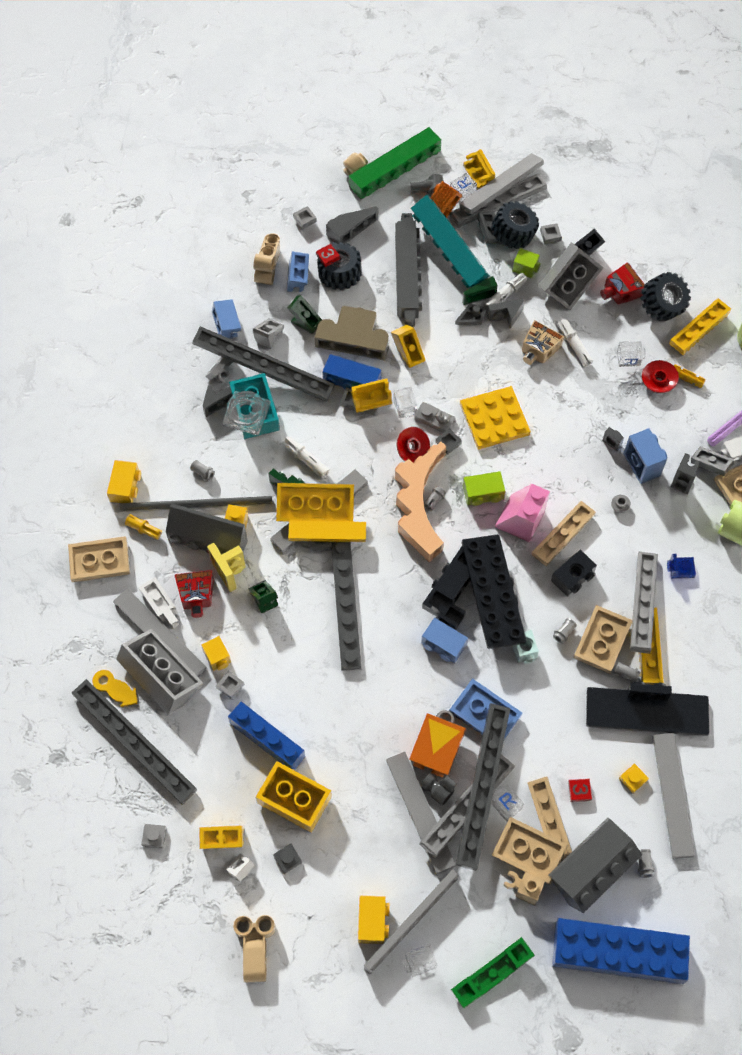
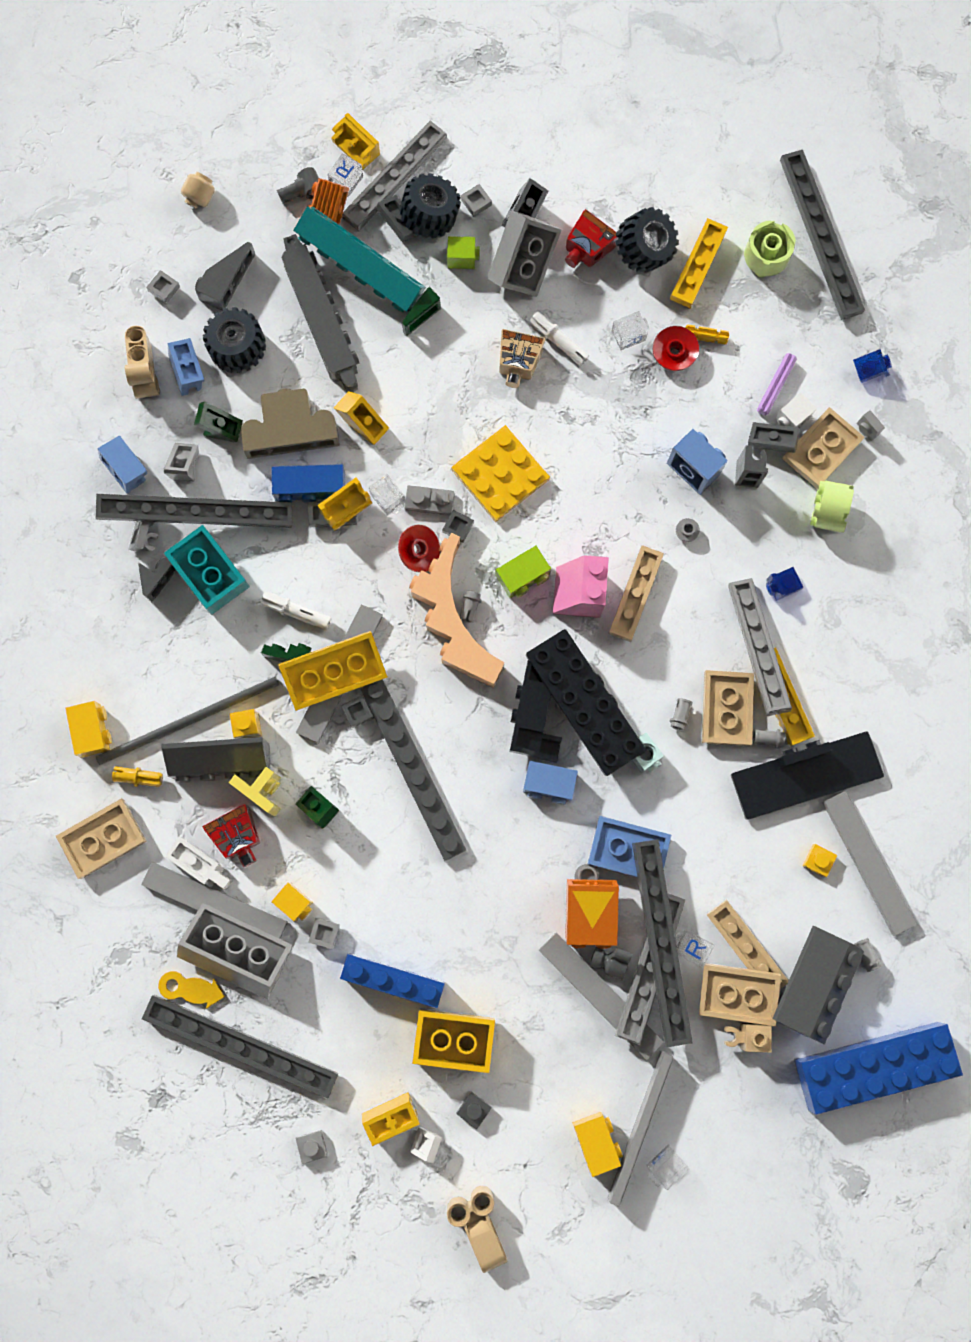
camera: 25 degrees left, 15 degrees up
(206, 472) = (179, 676): light grey pin -> none
(248, 423) = (217, 596): clear piece -> none
(327, 255) = (216, 334): red tile -> none
(327, 531) = (361, 700): yellow tile -> none
(395, 163) = (246, 169): green brick -> none
(471, 315) = (422, 346): dark grey piece -> none
(493, 973) = (748, 1148): green slope -> none
(501, 183) = (390, 152): light grey tile -> none
(508, 310) = (464, 324): dark grey slope -> none
(510, 288) = (454, 294): white axle -> none
(577, 563) = (672, 626): black brick -> none
(579, 790) = (766, 898): red tile -> none
(613, 438) = (650, 450): dark grey plate -> none

